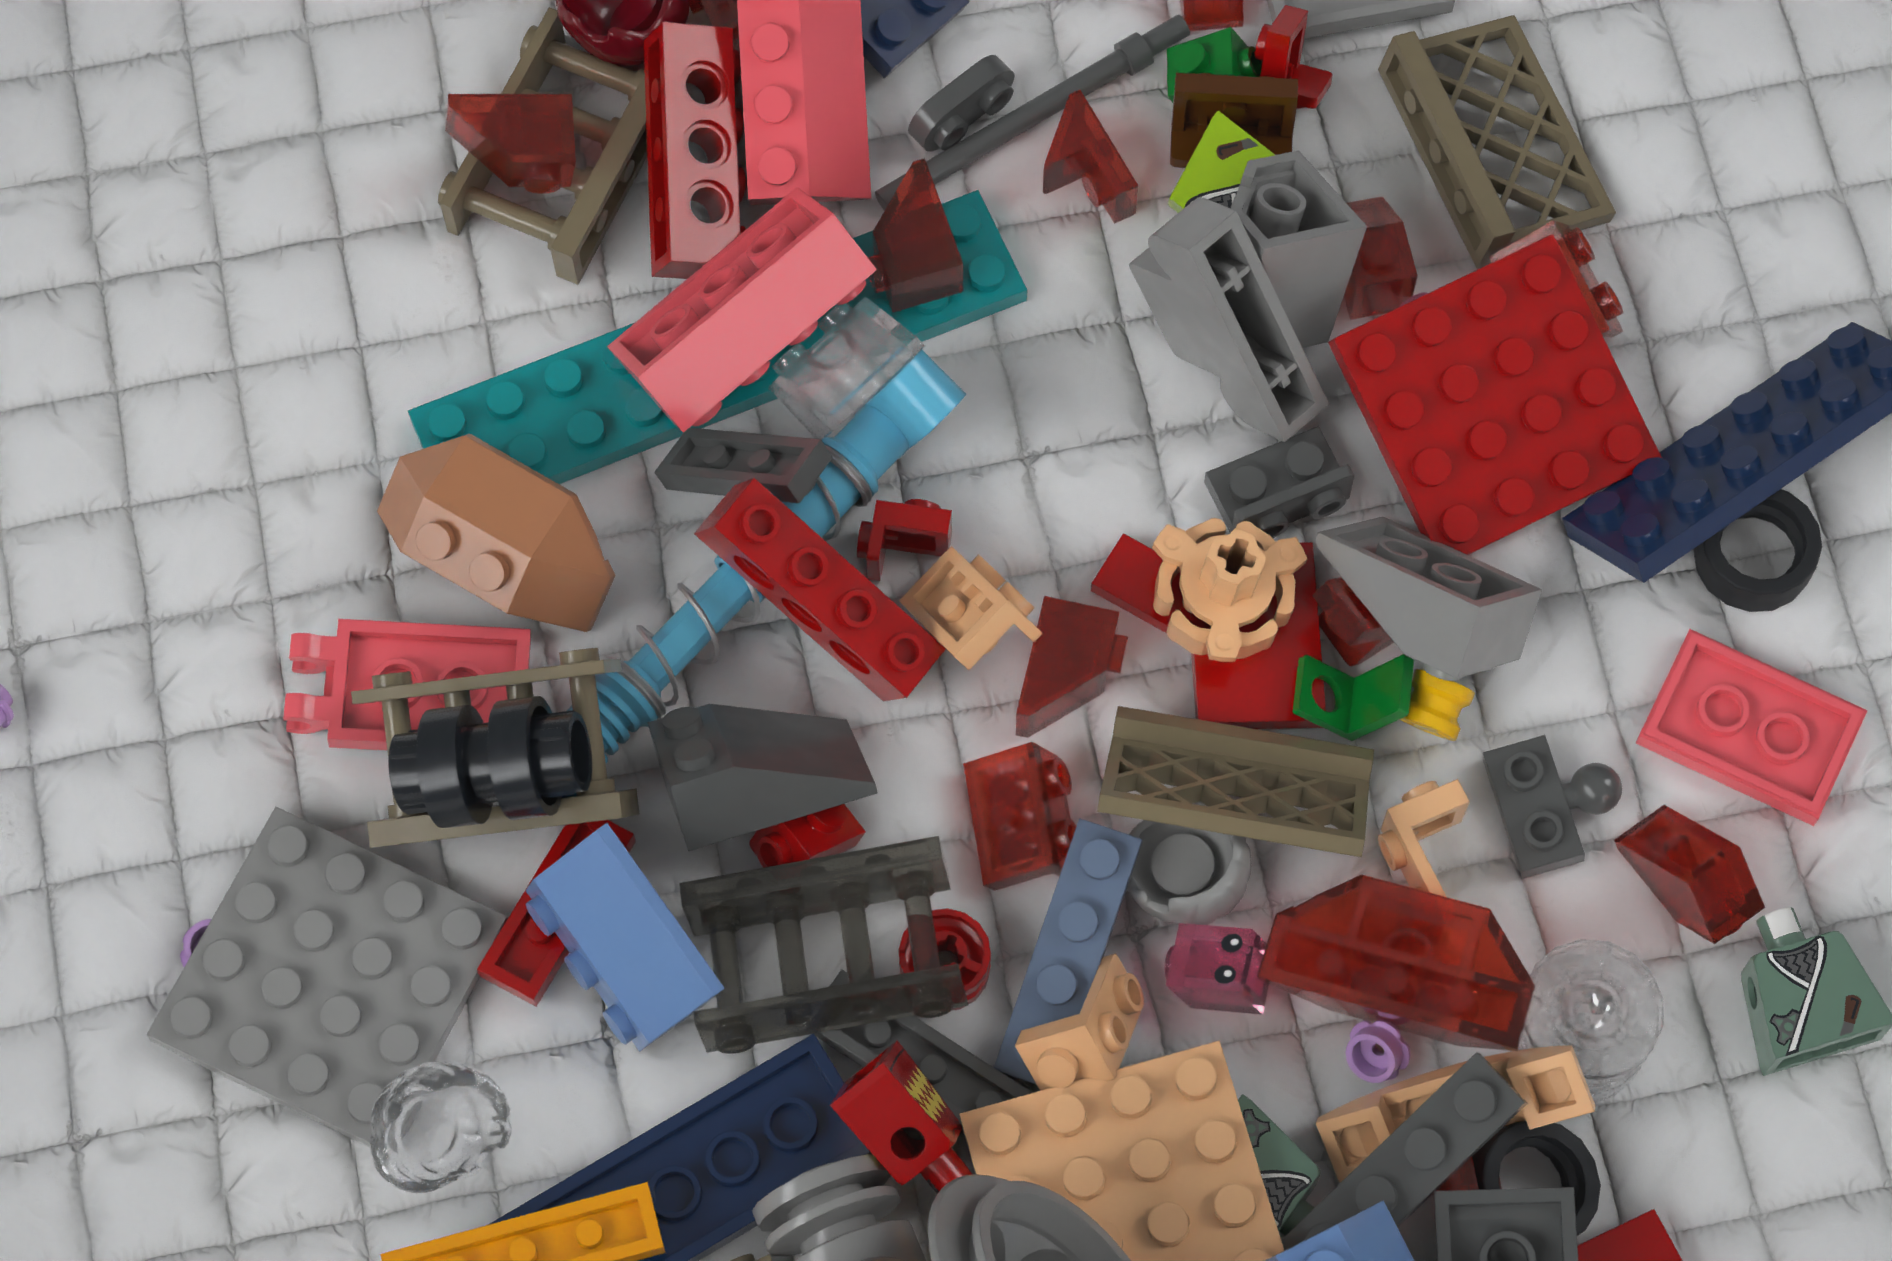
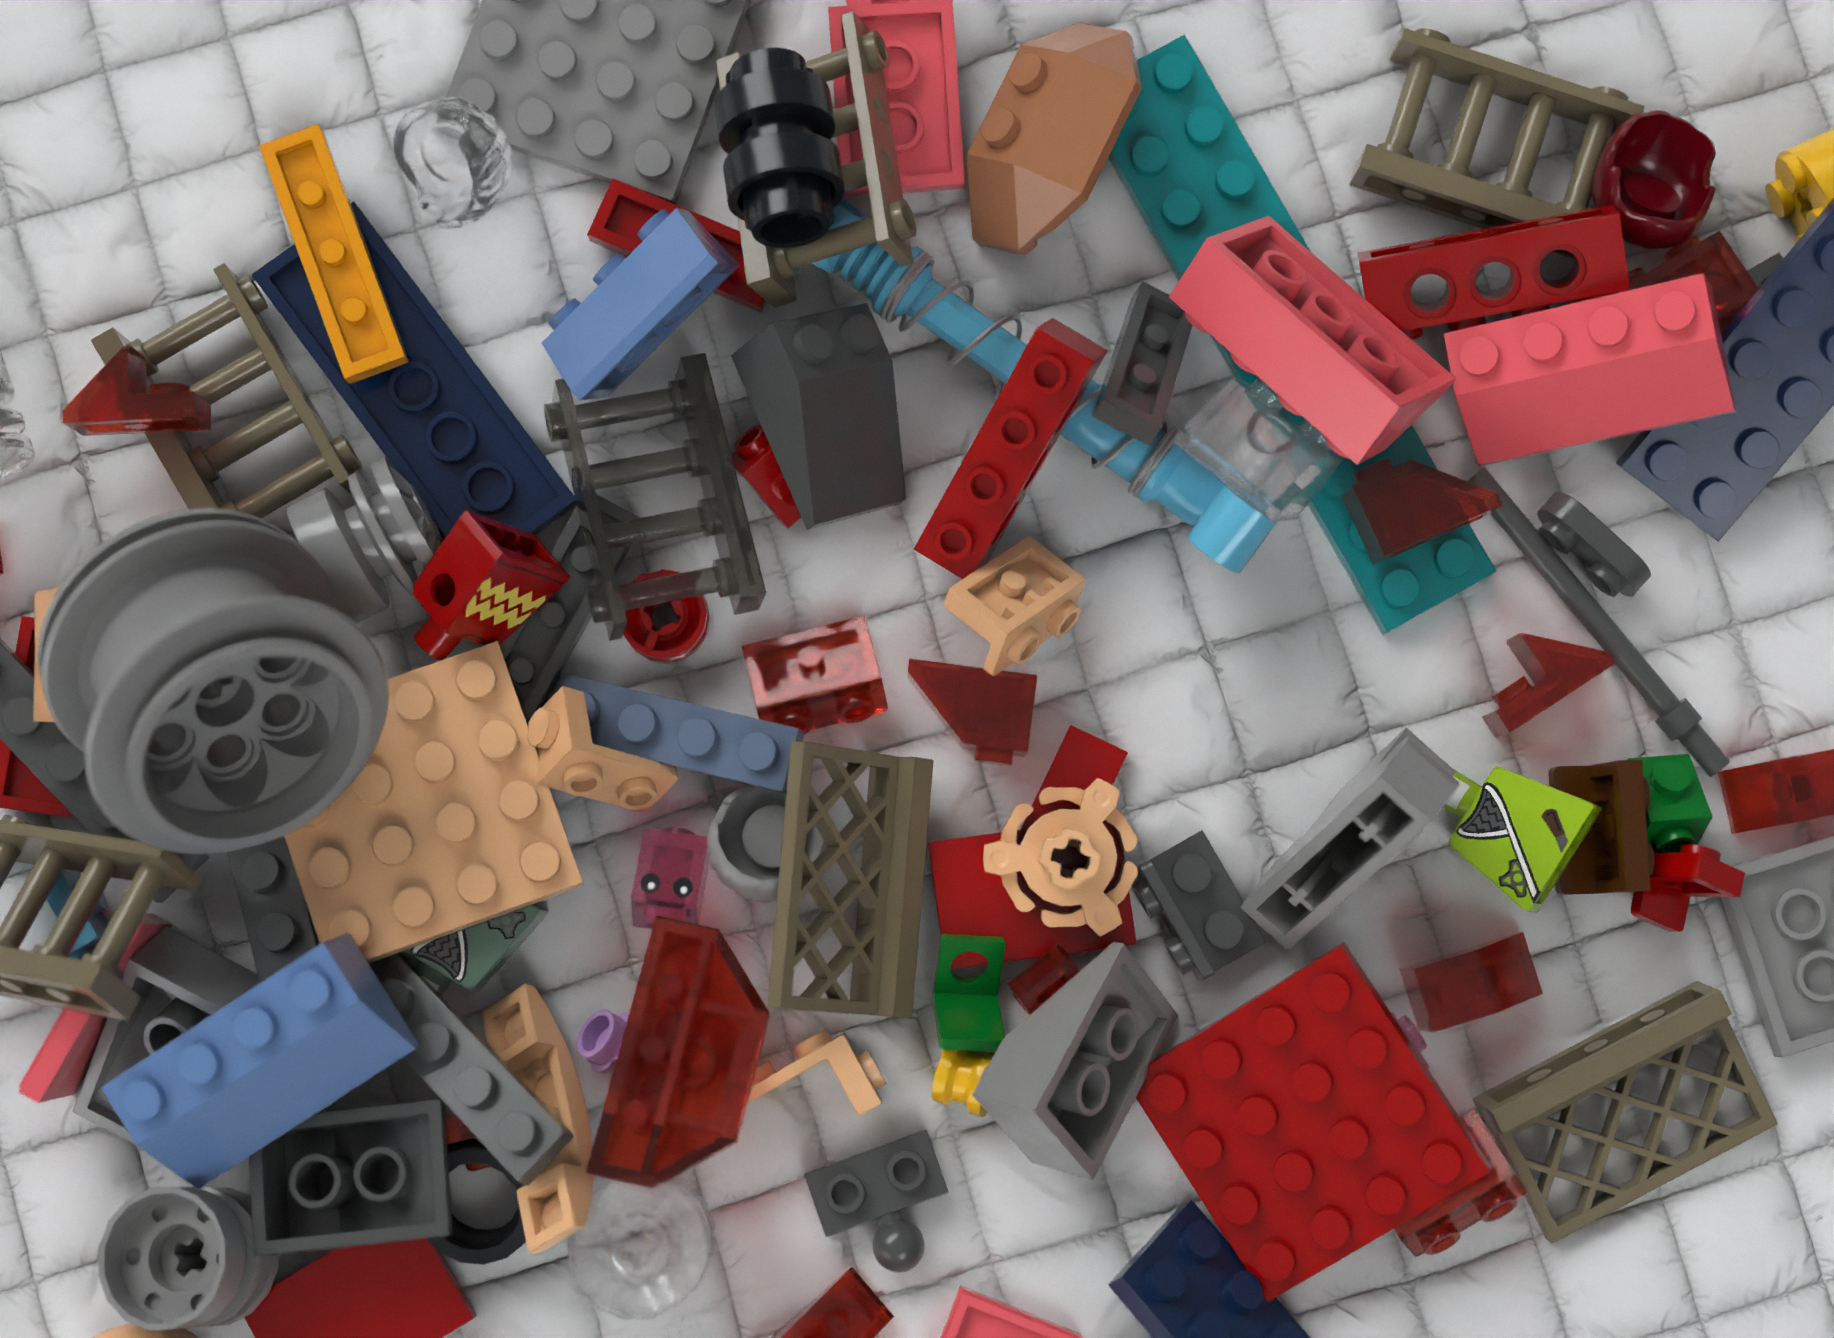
camera: 80 degrees right, 15 degrees up
(517, 136) = (1482, 95): clear red slope -> none
(907, 527) = (1111, 543): red bracket -> none
(1302, 239) = (1449, 894): light grey slope -> none

